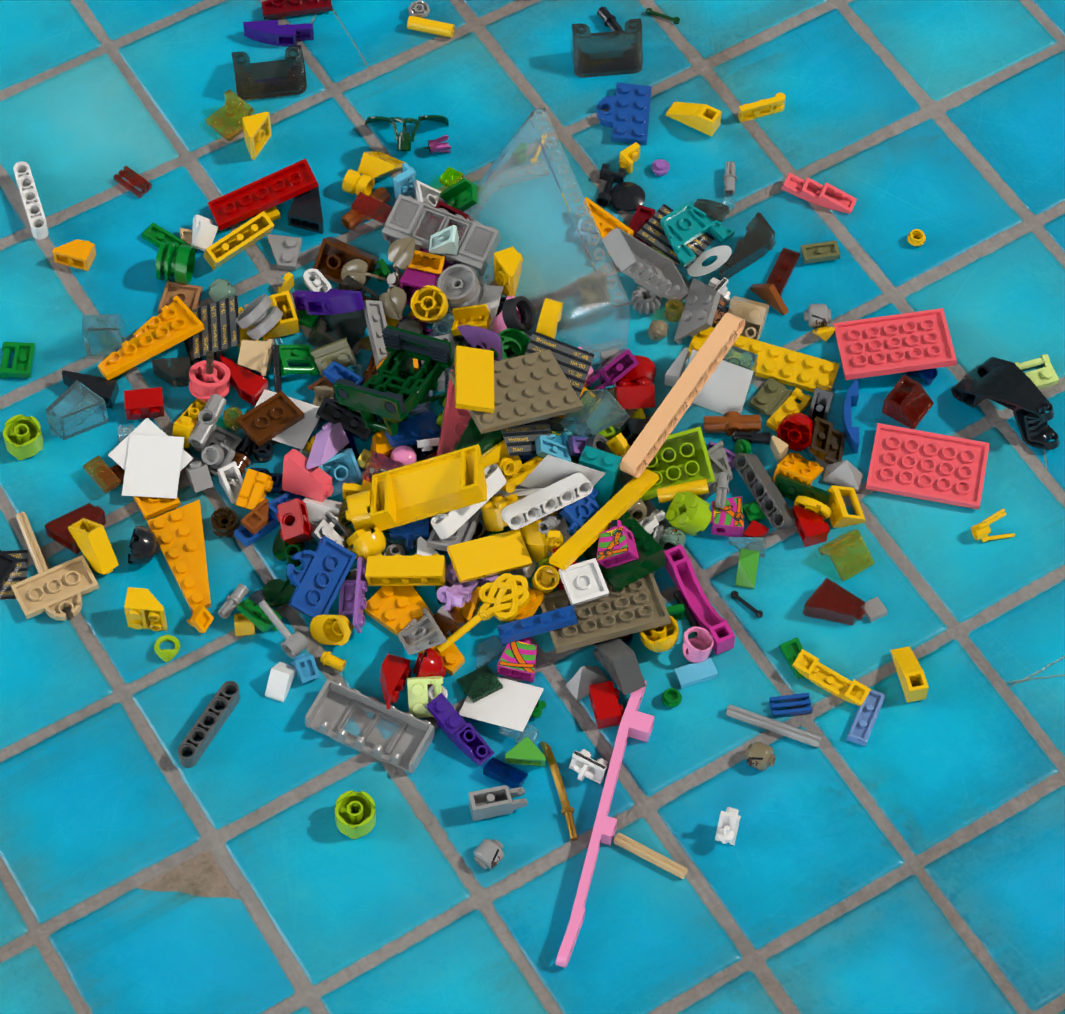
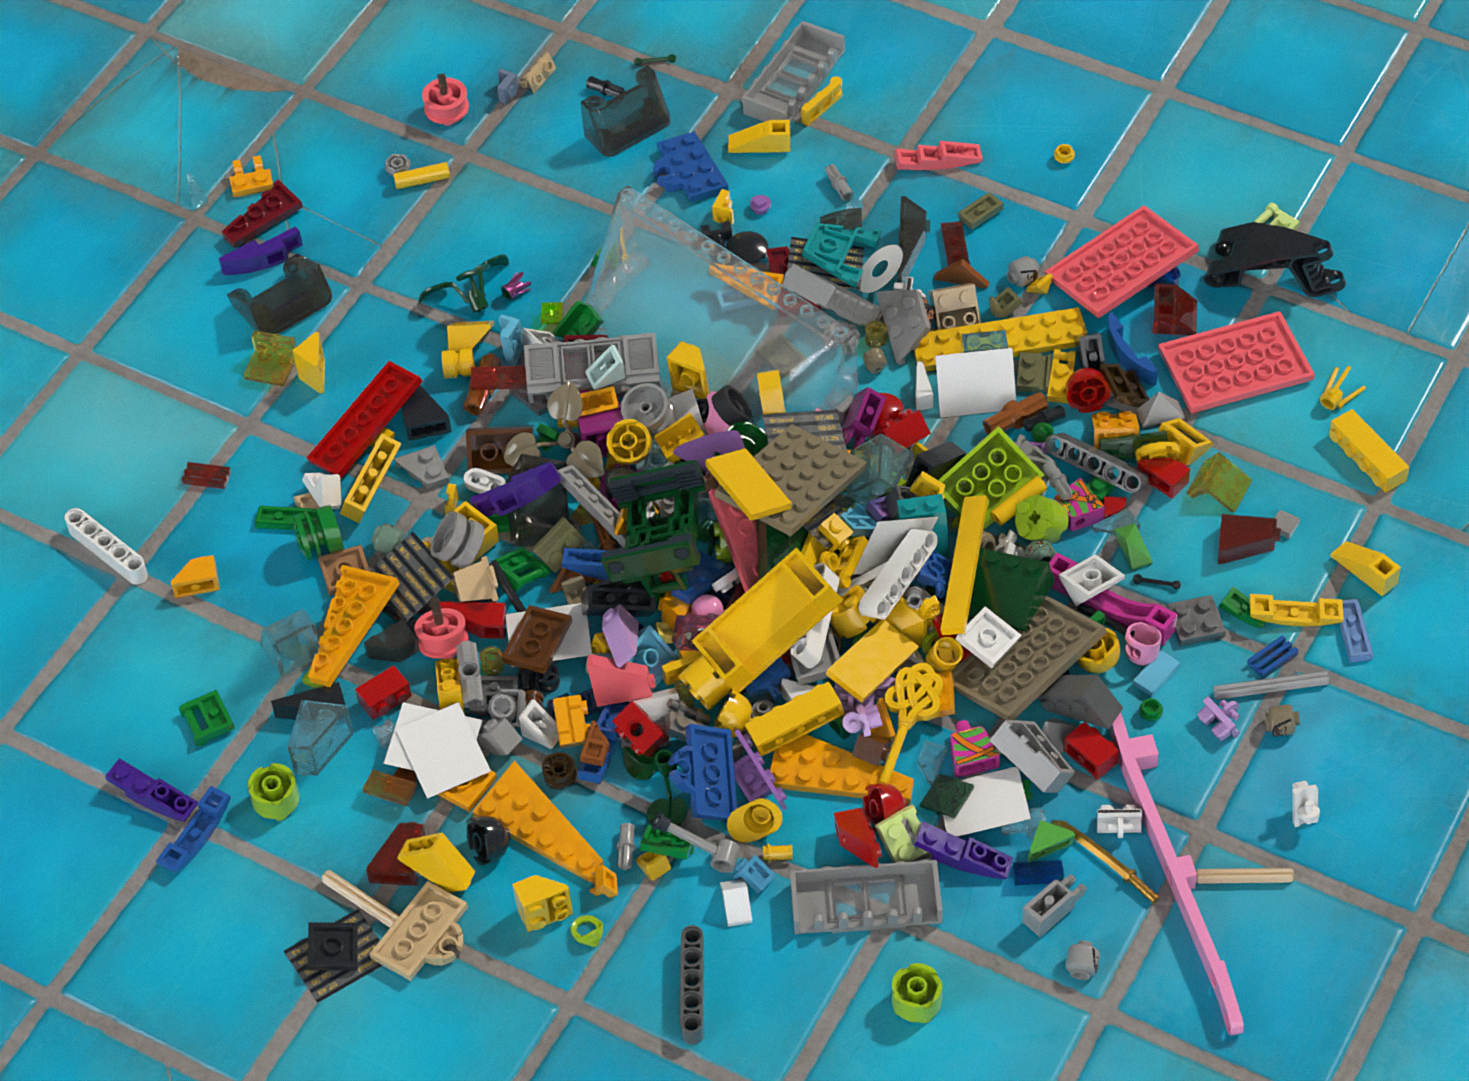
camera: 25 degrees left, 5 degrees down
(357, 534) = (716, 711): yellow tile -> none
(421, 634) = (859, 772): light grey wing -> none
(525, 447) = (836, 532): none -> yellow bracket
(537, 624) = (969, 704): blue plate -> none
(558, 685) = (1033, 754): none -> light grey wedge
(616, 546) = (998, 584): torso -> none
(682, 395) = (959, 404): light nougat beam -> none
(689, 576) = (1089, 579): none -> white slope
(719, 728) = (1225, 726): none -> lavender hips
(754, 648) = (1197, 620): none -> flat silver plate
(755, 76) = (793, 73): none -> light grey window
(778, 448) = (1078, 415): tan slope -> none
(785, 333) = (1004, 303): none -> olive plate
(977, 586) = (1368, 450): none -> yellow brick

